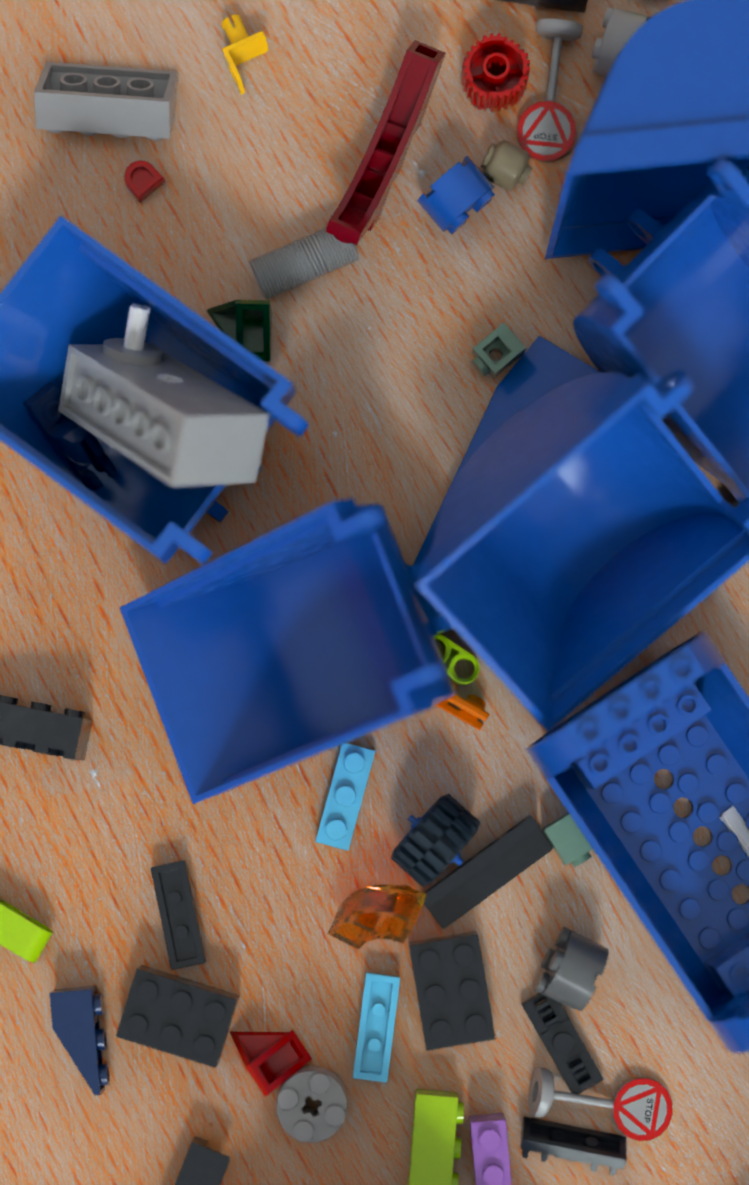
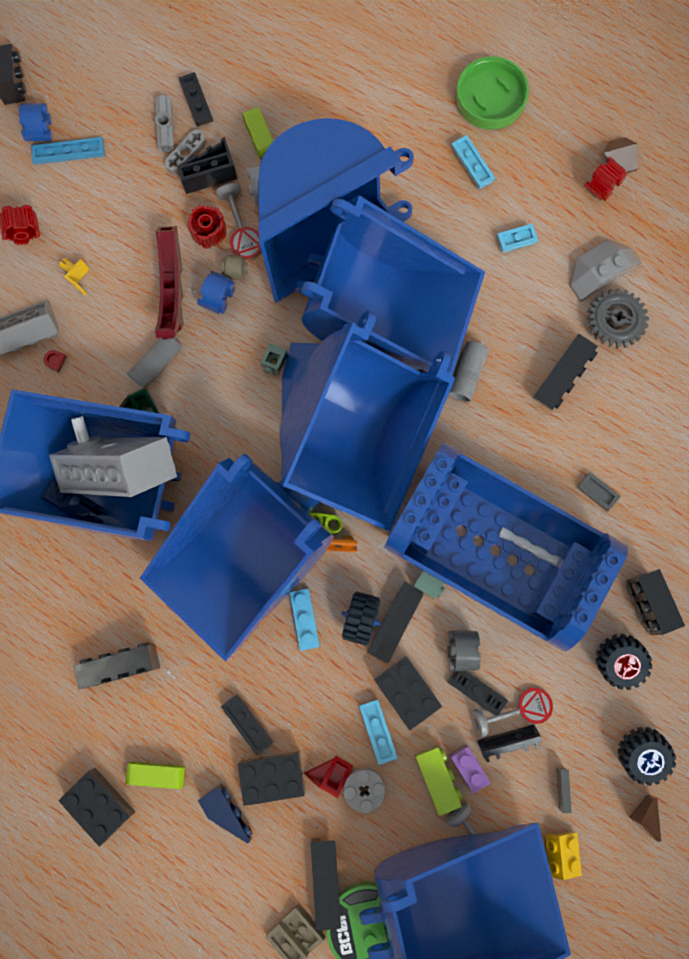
camera: 25 degrees left, 5 degrees down
(377, 914) = (350, 671): clear orange brick -> none

